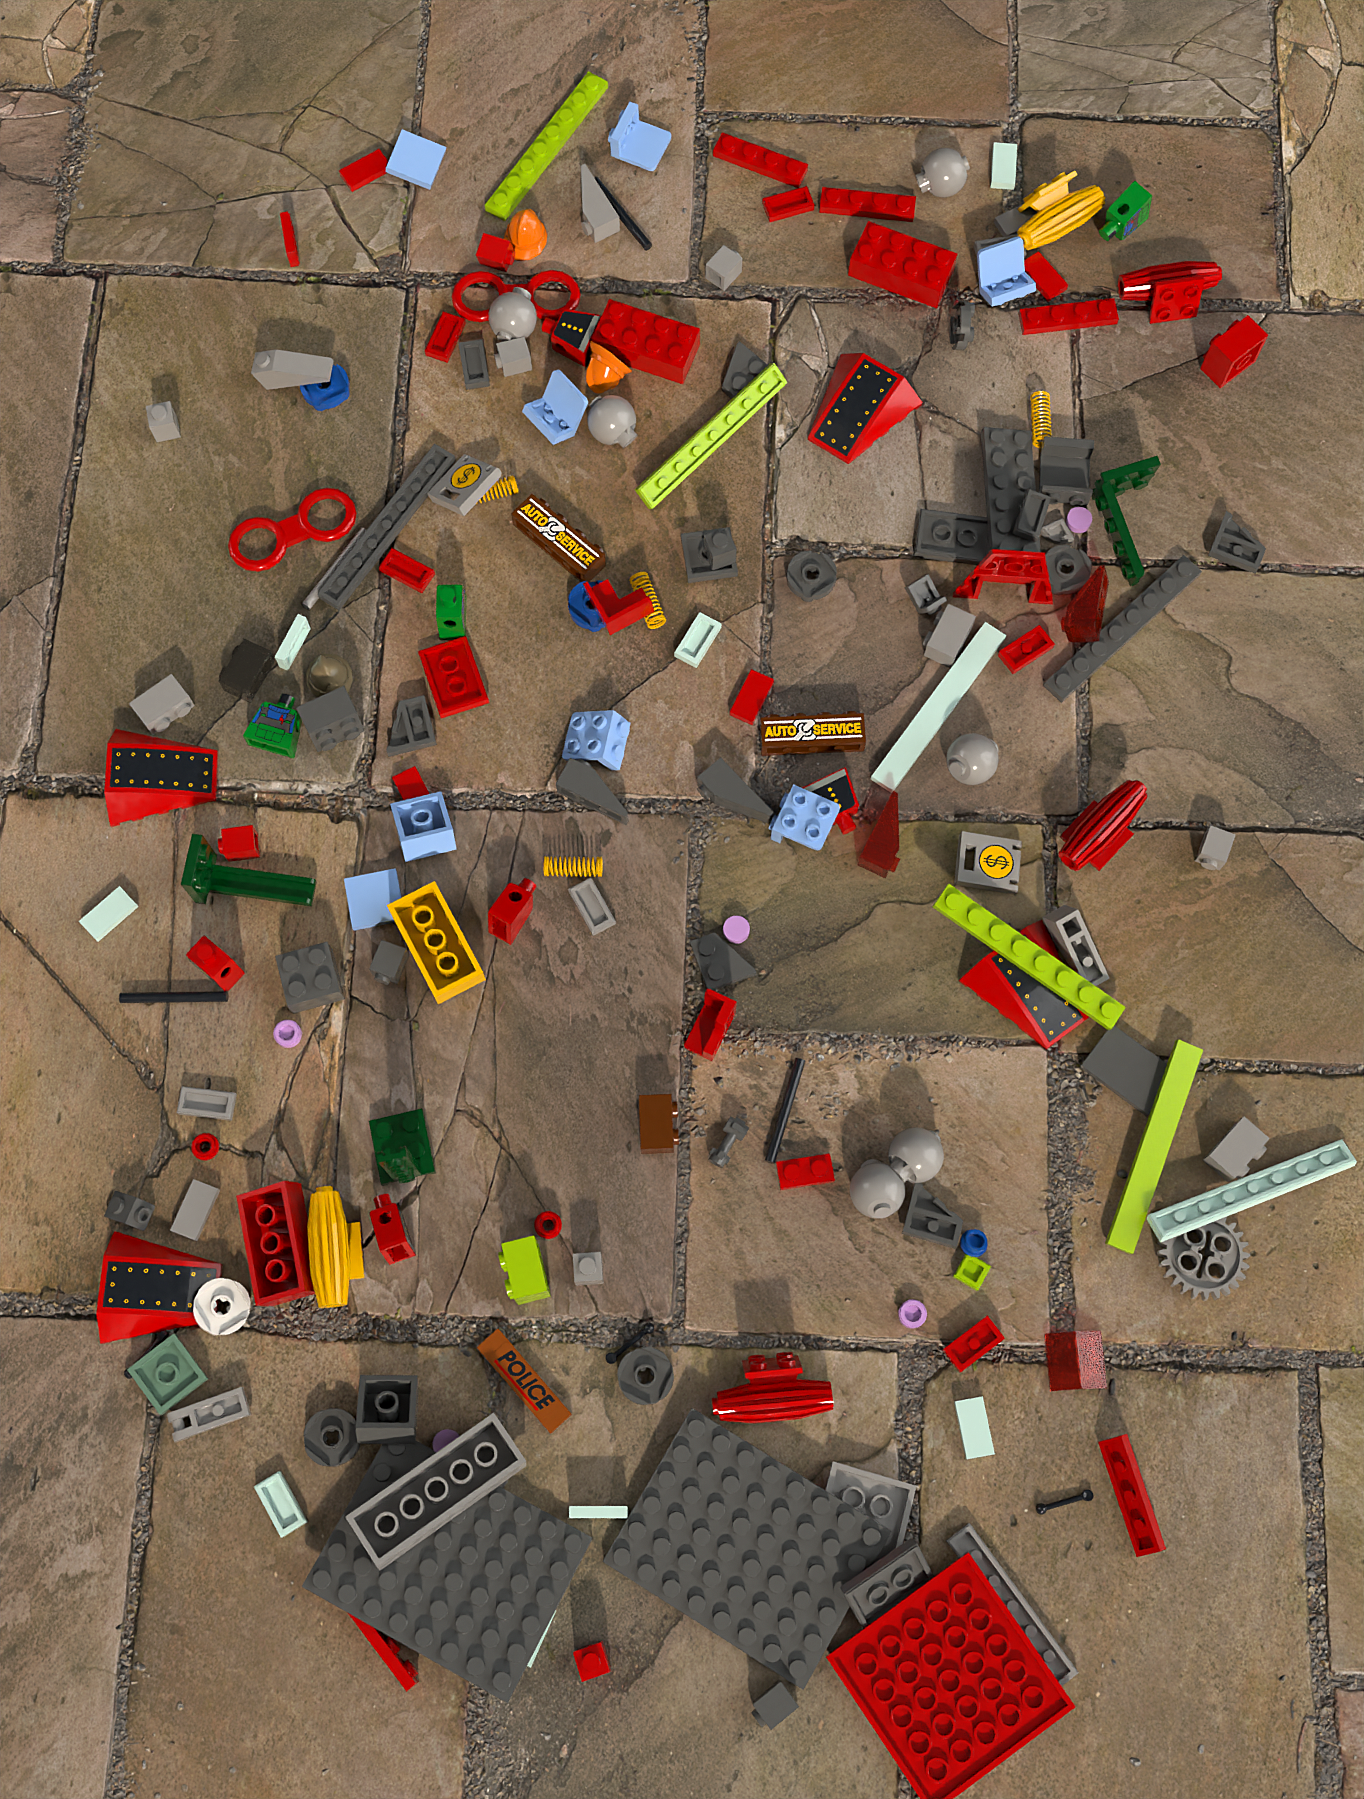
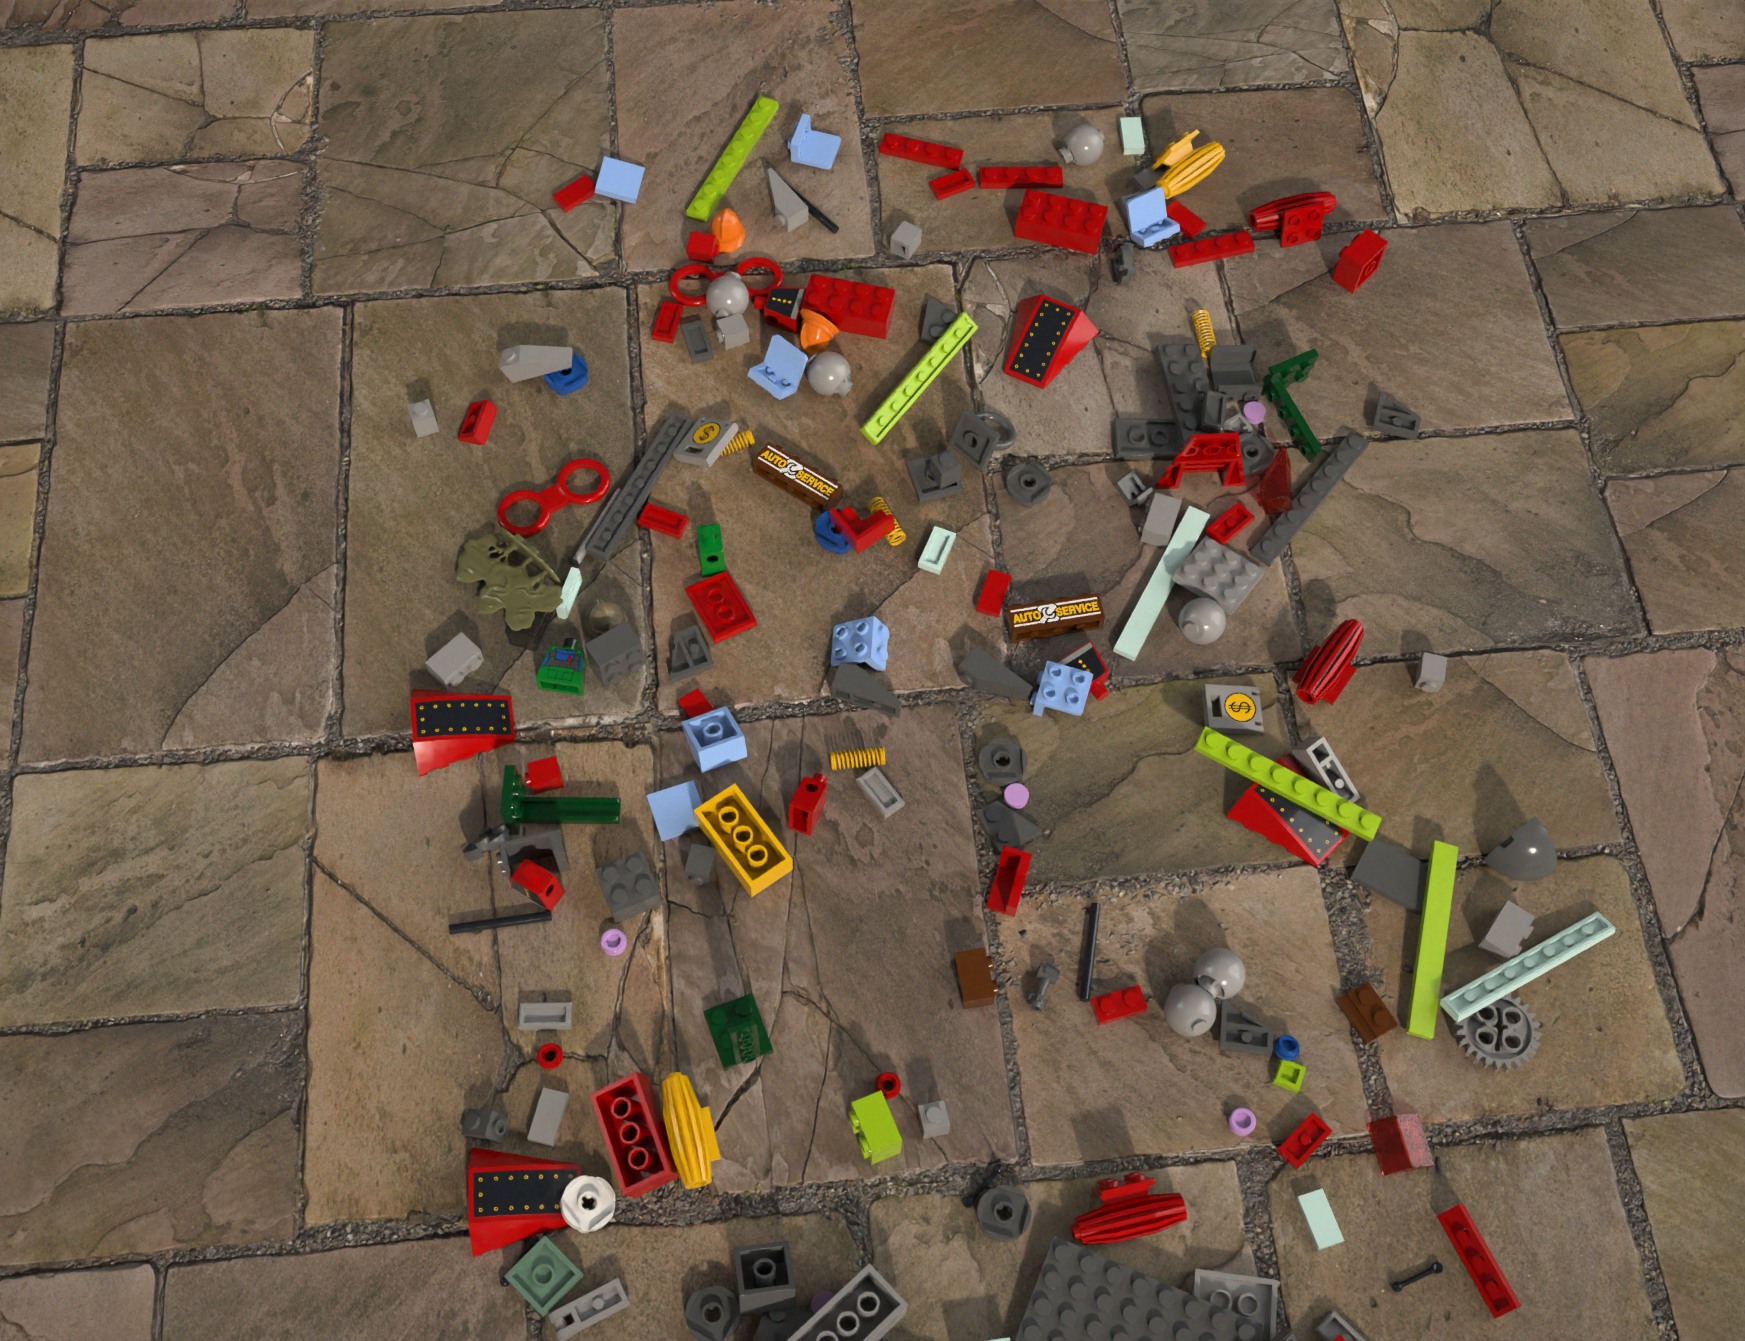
camera: 10 degrees left, 10 degrees down
(108, 913) = (428, 854): light aqua tile -> none
(170, 910) = (488, 840): none -> dark grey plate
(211, 923) = (532, 848): none -> dark grey panel
(223, 432) = (478, 422): none -> red slope
(227, 625) = (508, 584): none -> olive plant
(289, 239) = (516, 255): red tile -> none
(391, 1230) = (741, 1109): red torso -> none
(524, 1381) = (889, 1235): dark orange tile -> none
(727, 905) = (999, 775): none -> dark grey plate
(761, 518) = (977, 439): none -> dark grey tile
(883, 844) = (1136, 703): clear red slope -> none
(1001, 707) = (1218, 574): none -> light grey plate
(1067, 1216) = (1366, 1013): none -> reddish brown plate
(1127, 213) = (1245, 160): green torso -> none
(1274, 1067) = (1525, 854): none -> dark grey brick

